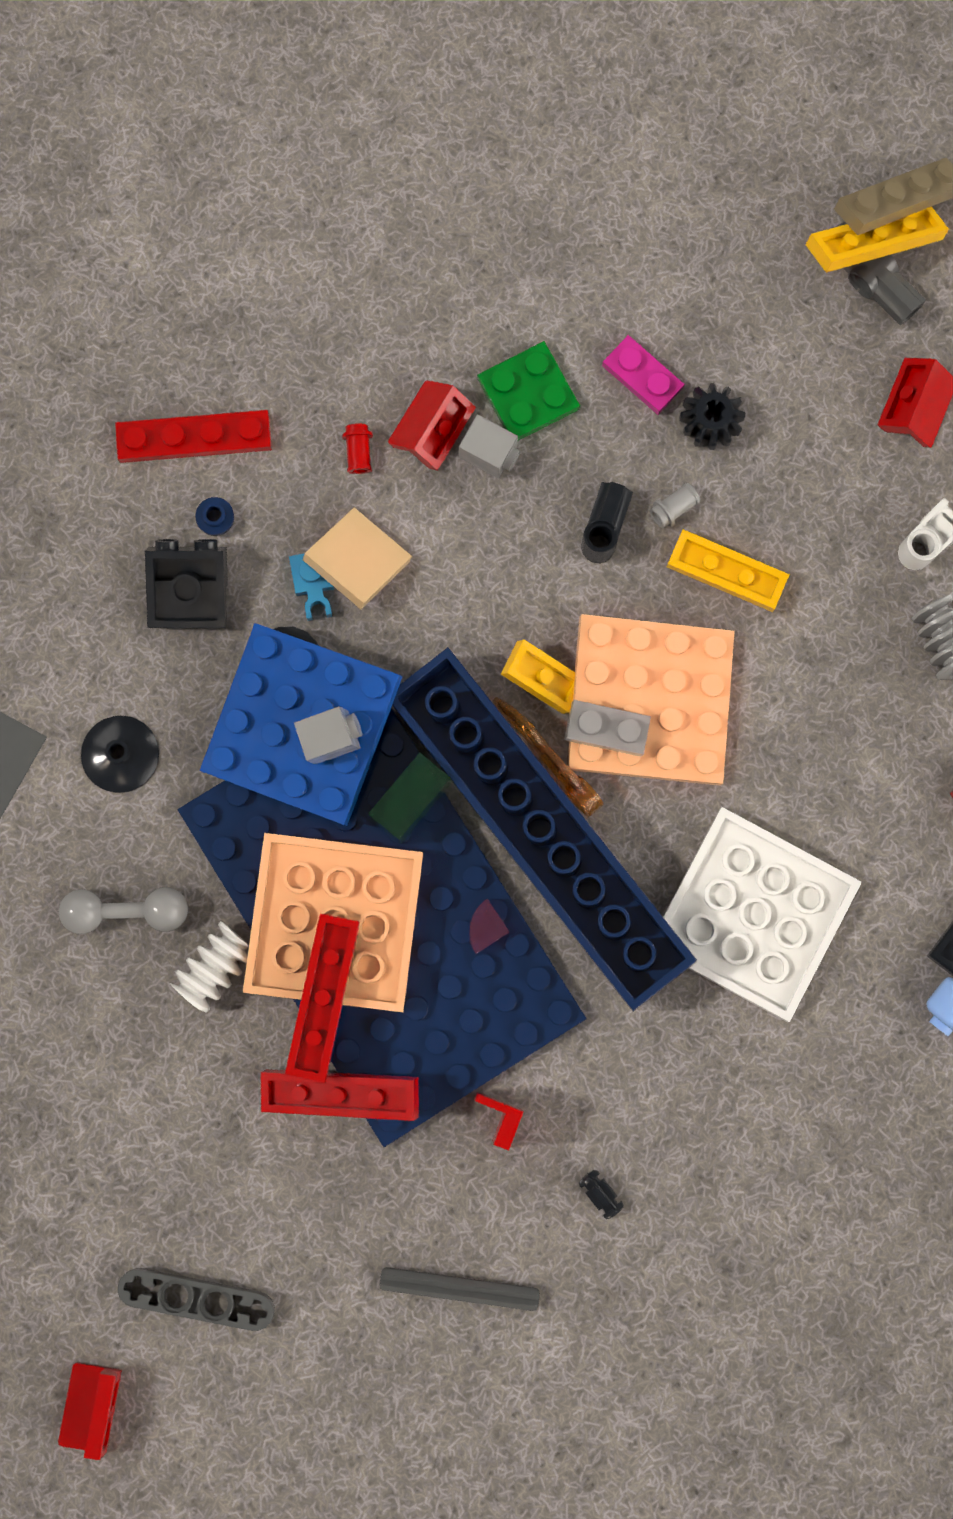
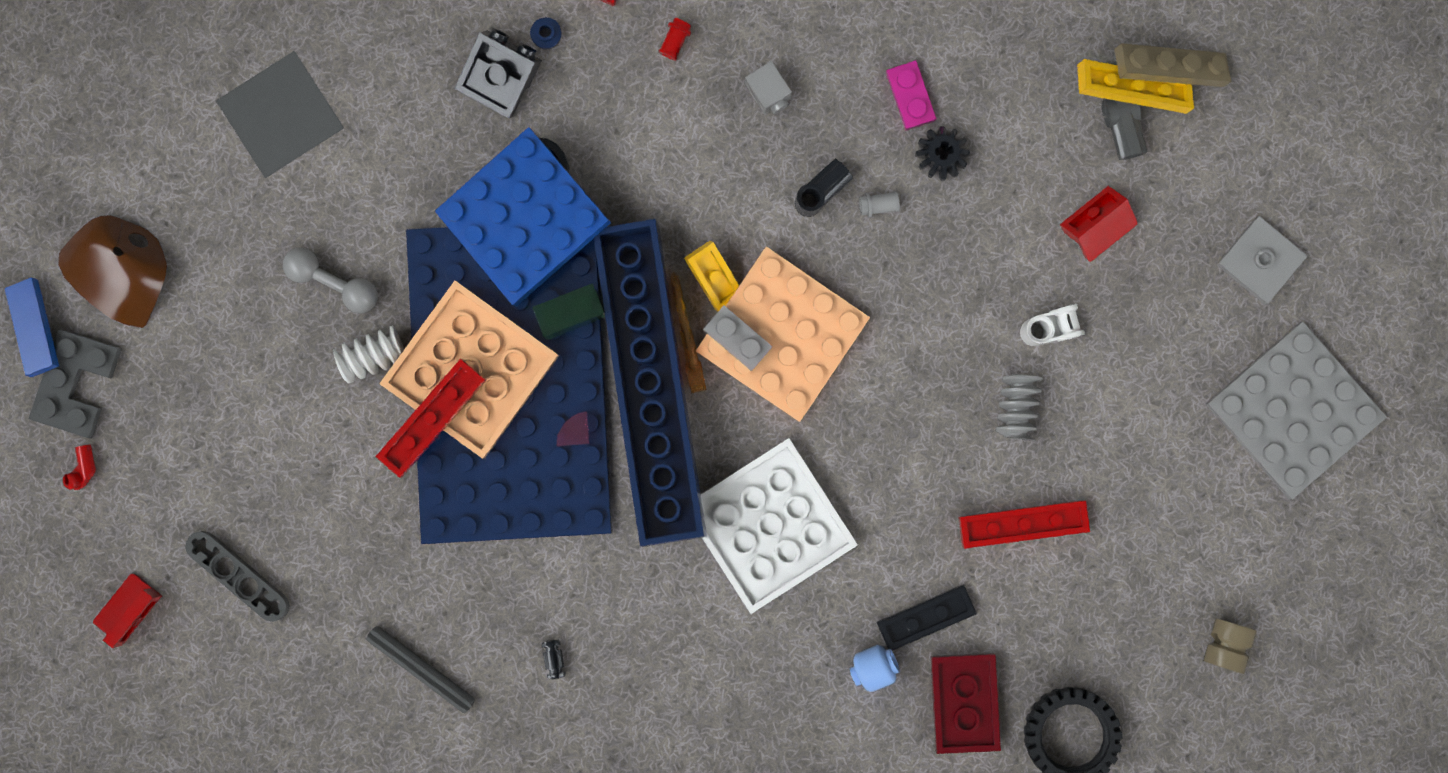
camera: 35 degrees right, 5 degrees up
(130, 770) = (399, 178): black dish -> none
(311, 583) = (591, 114): dark azure plate -> none
(328, 734) = (533, 236): light grey brick -> none
(341, 1095) = (410, 493): red plate -> none
(357, 558) = (629, 118): tan tile -> none
(432, 423) = (738, 49): red panel -> none
(508, 1123) = (518, 570): red panel -> none
(528, 391) = (821, 63): green plate -> none
(728, 570) = (890, 271): yellow plate -> none

